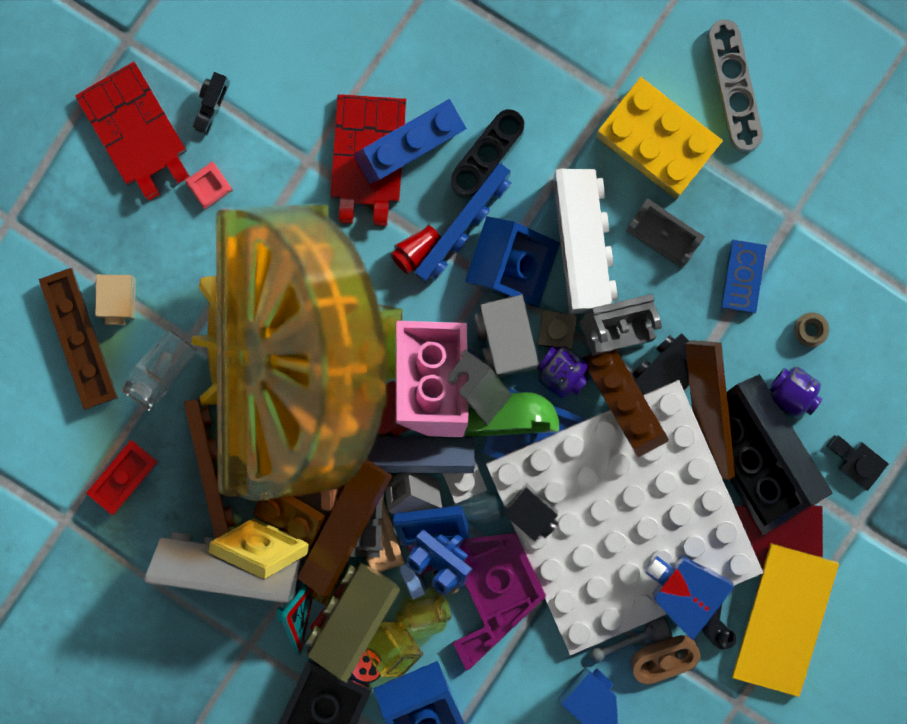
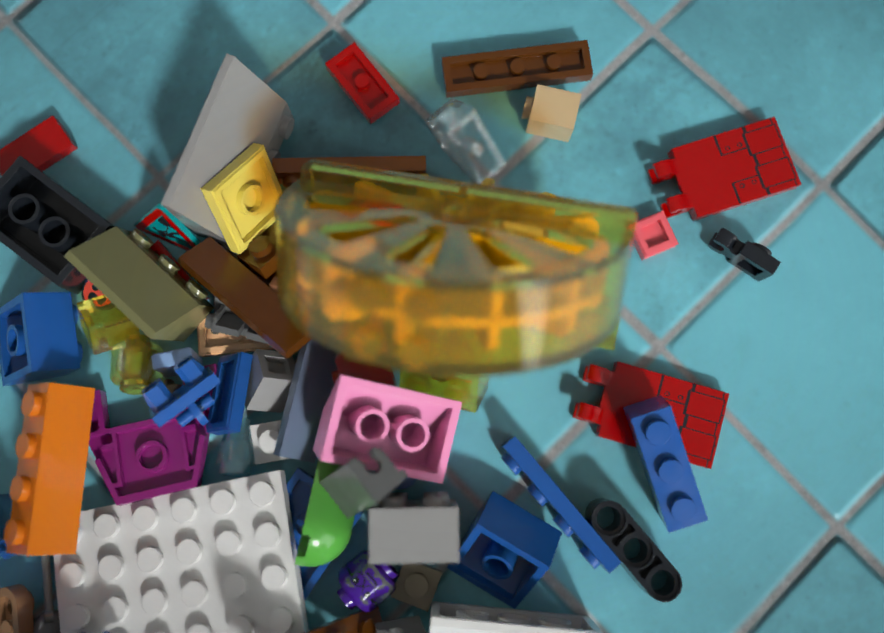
camera: 95 degrees right, 5 degrees down
(414, 249) = (539, 440): red cone -> none
(525, 653) = (50, 470): none -> orange brick
(531, 513) = (206, 511): black brick -> none

